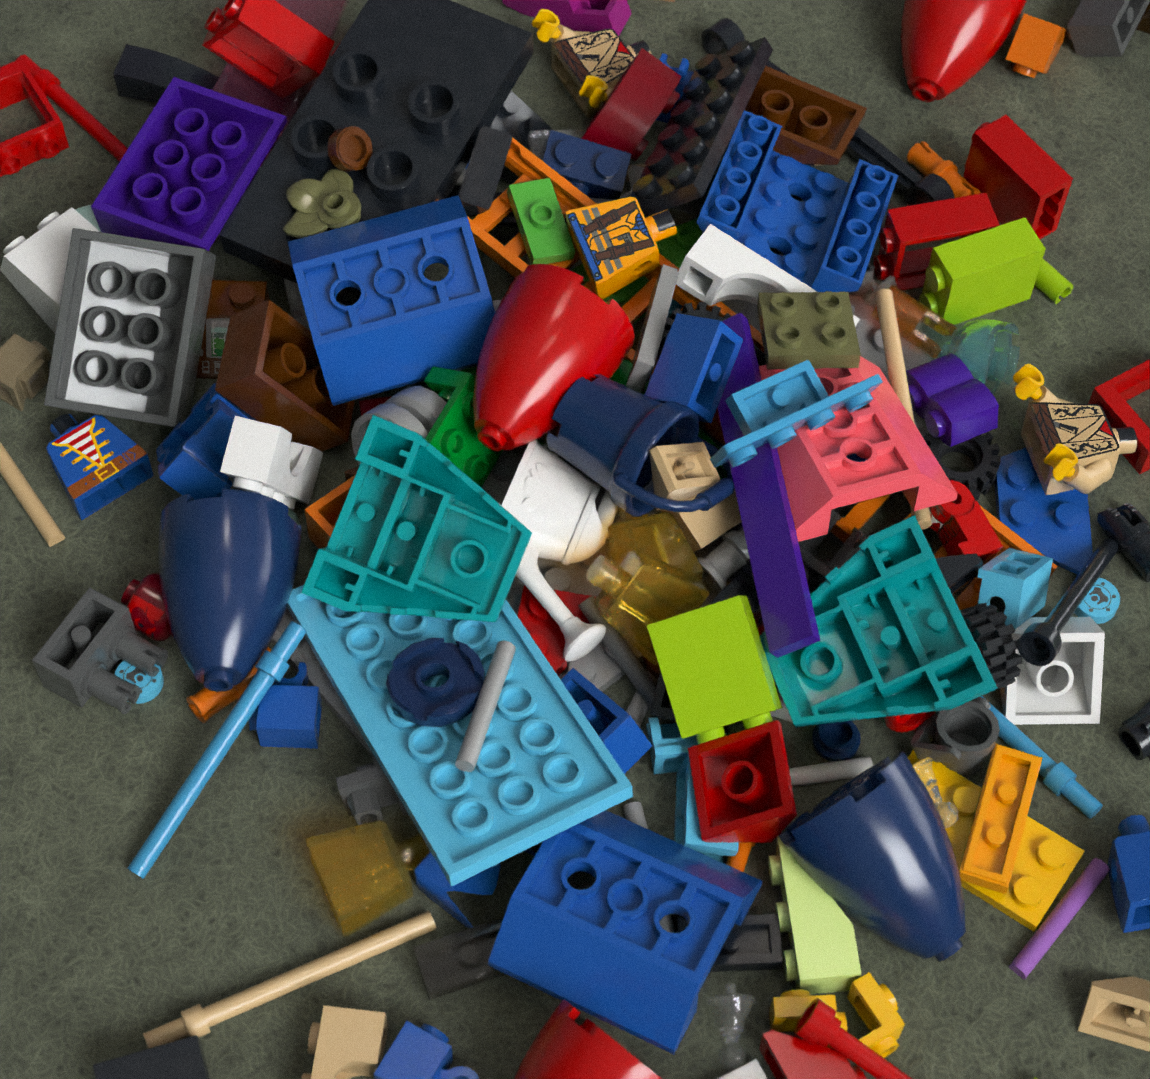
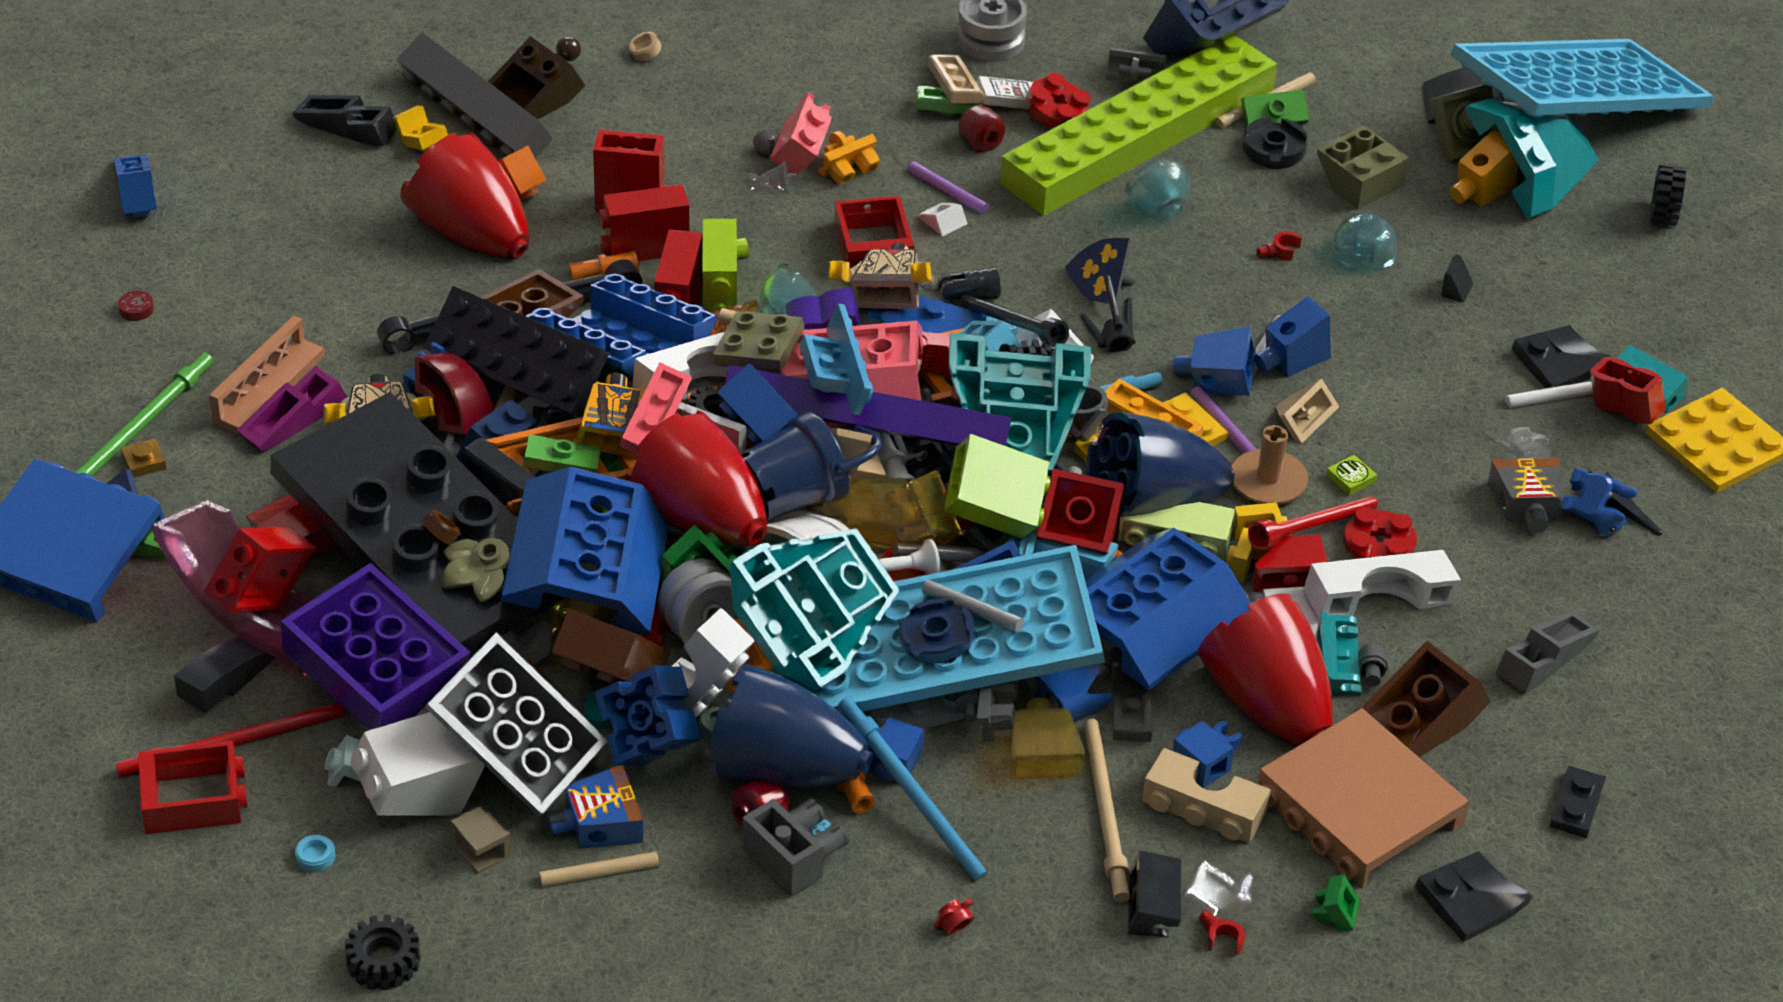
camera: 70 degrees left, 15 degrees down
(49, 862) = (954, 916): none -> red plate
(630, 267) = (657, 403): none -> coral plate
(979, 1005) = (1270, 472): none -> medium nougat piece
(1081, 128) = (626, 163): none -> red brick

